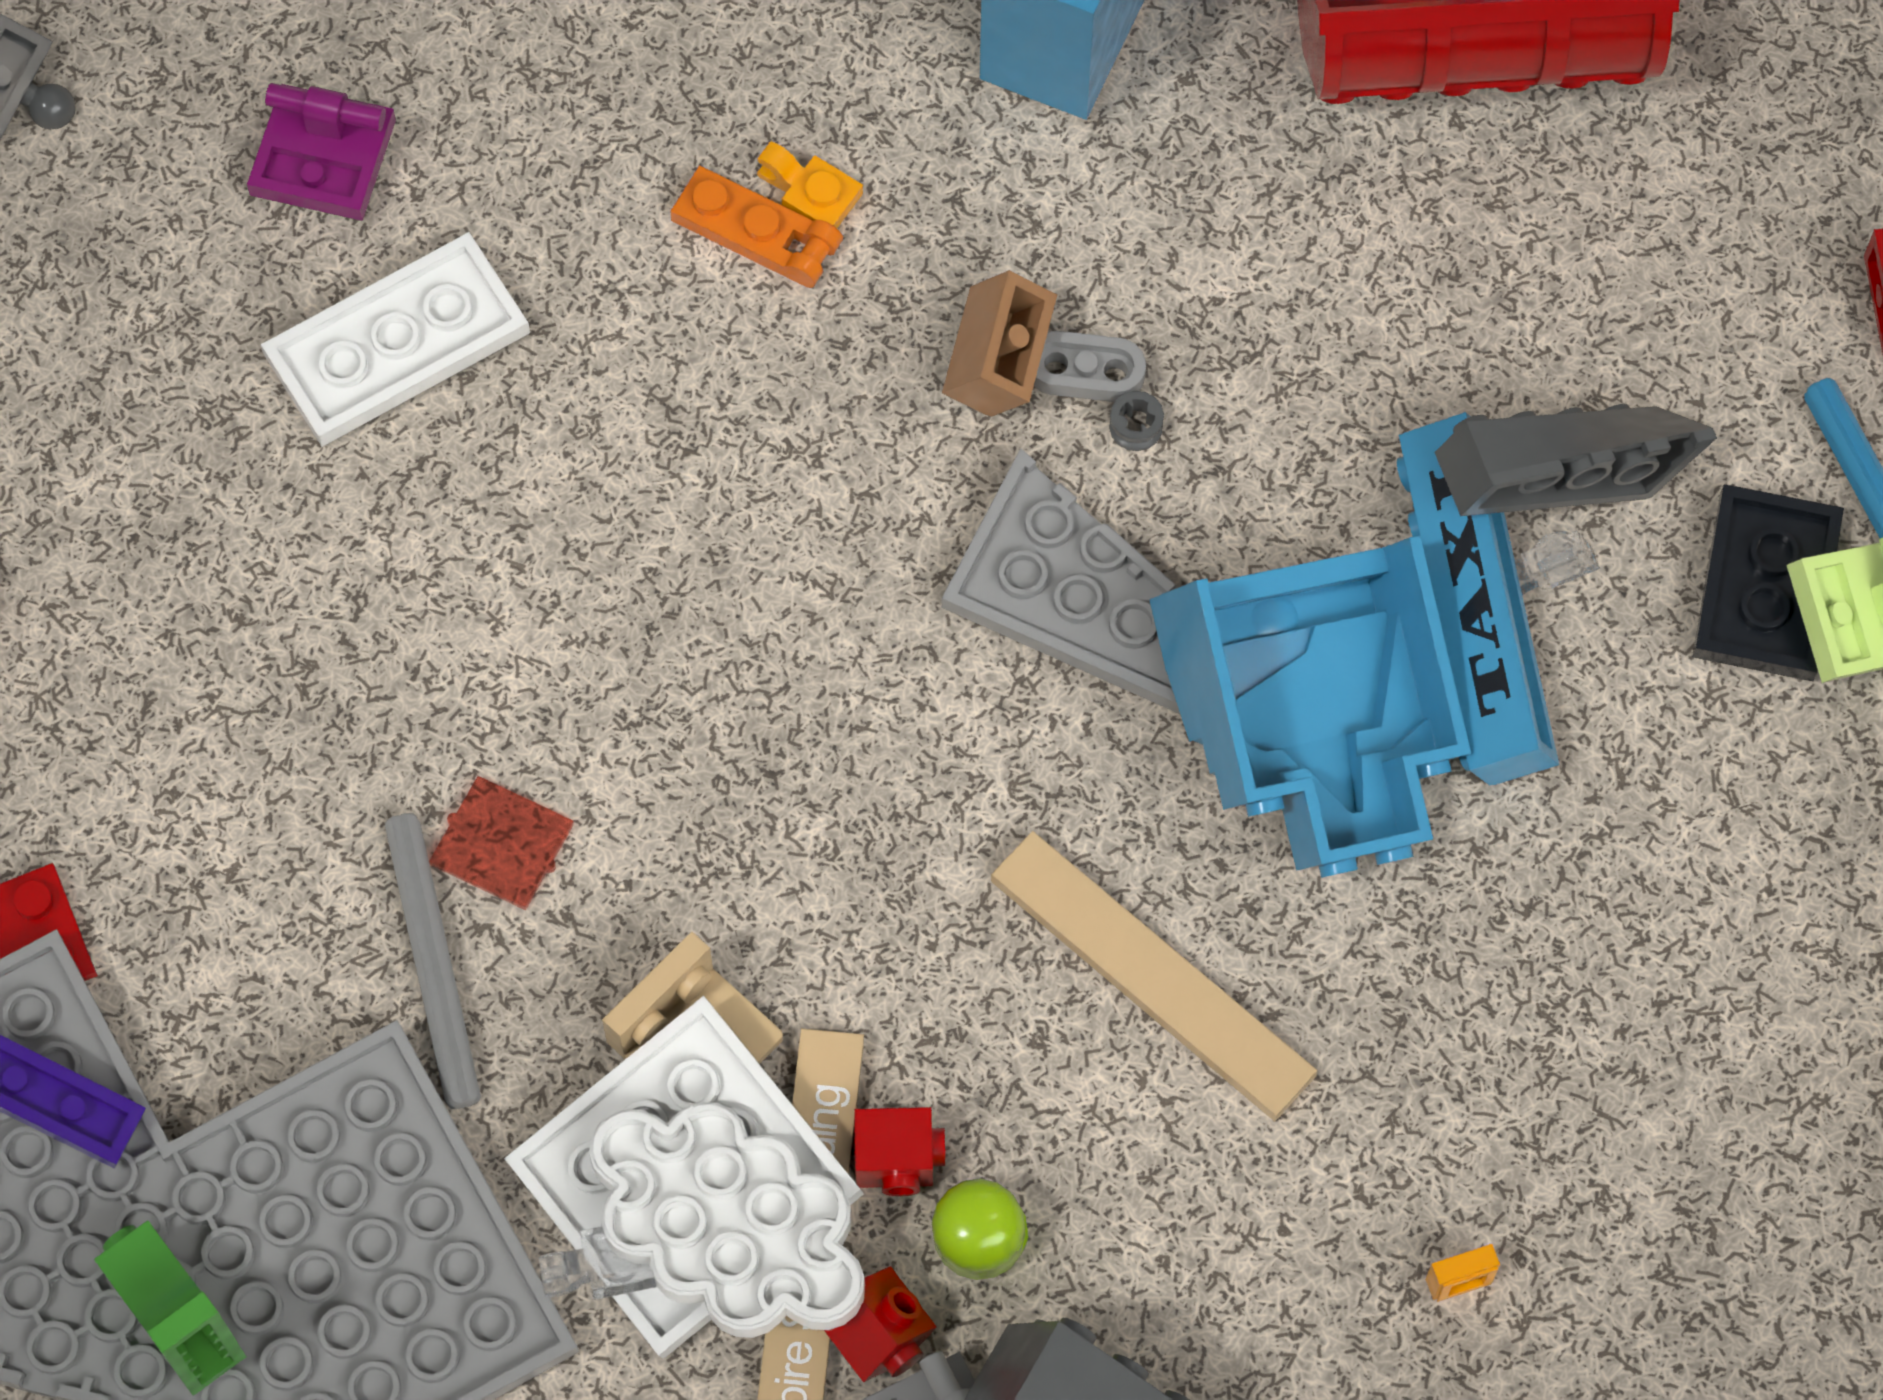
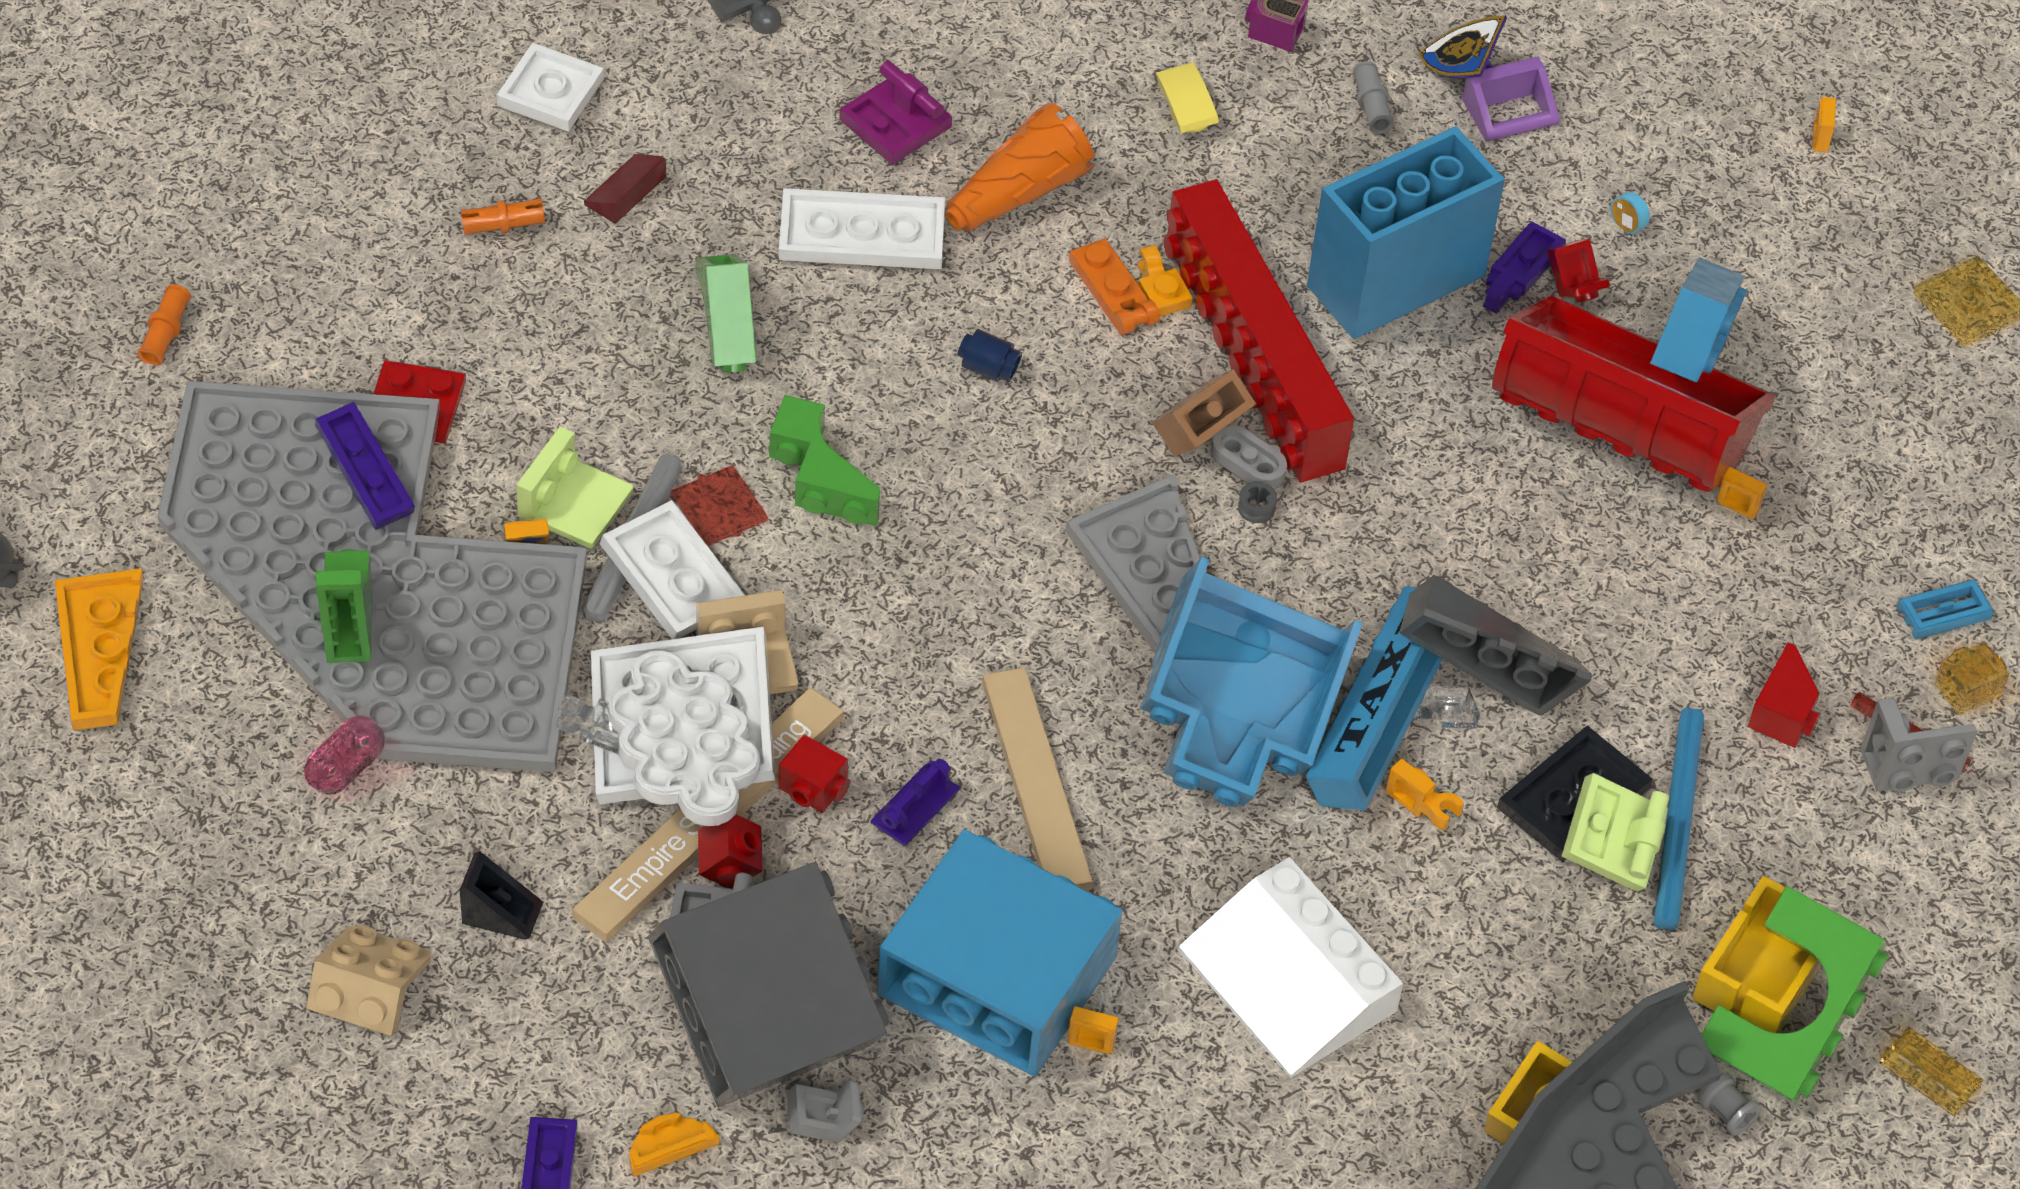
camera: 30 degrees right, 15 degrees down
(54, 460) = (627, 186): none -> dark red slope
(303, 1046) = (527, 531): none -> light orange tile
(320, 560) = (727, 310): none -> arch
(320, 952) = (569, 493): none -> yellowish green bracket
(523, 980) = (668, 567): none -> white plate
(544, 116) = (1023, 169): none -> orange cone
(613, 725) = (825, 478): none -> bright green arch
(681, 422) = (989, 356): none -> dark blue brick
(979, 1229) = (828, 835): lime helmet -> none
(984, 187) = (1258, 331): none -> red brick
(1037, 1102) = (917, 802): none -> dark purple hinge
(1297, 1248) = (999, 951): none -> dark azure brick
(1596, 701) = (1416, 793): none -> light orange plate
(1624, 1035) = (1292, 968): none -> white slope
(1686, 53) = (1741, 493): none -> light orange tile

